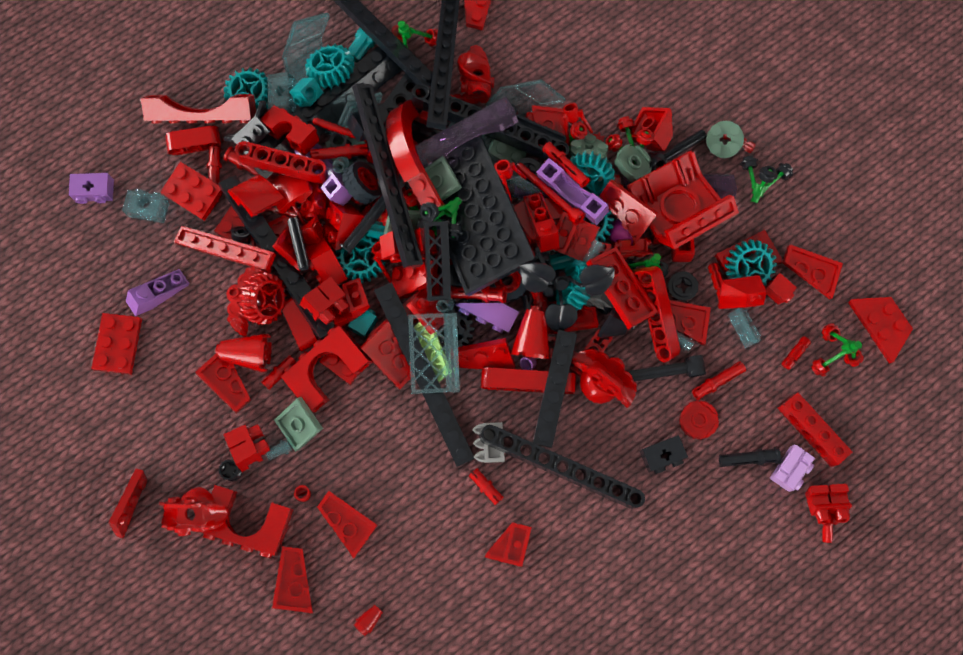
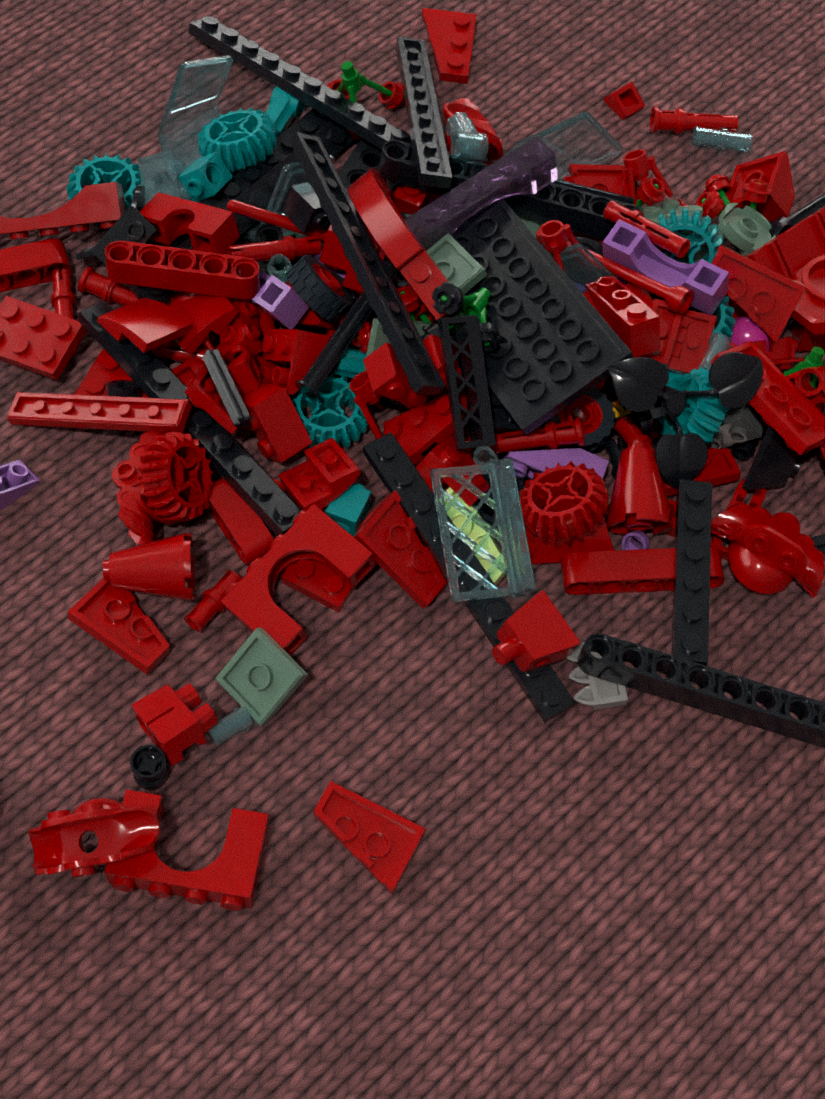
camera: 10 degrees left, 15 degrees down
(292, 583) = (285, 949): red wing -> none
(301, 490) = (279, 792): red hinge -> none
(323, 299) = (281, 468): red hips -> none
(368, 620) = (435, 998): red cone -> none
(454, 420) = (535, 636): none -> red torso
(465, 87) = (465, 140): none -> clear light blue piece
(484, 350) = (565, 509): none -> red gear
(486, 486) = (604, 746): red pin -> none
(511, 545) = (666, 838): red wing -> none
(580, 53) = (625, 100): none -> red slope
(611, 73) = (681, 121): none -> red pin
(636, 88) = (721, 139): none -> clear light blue pin

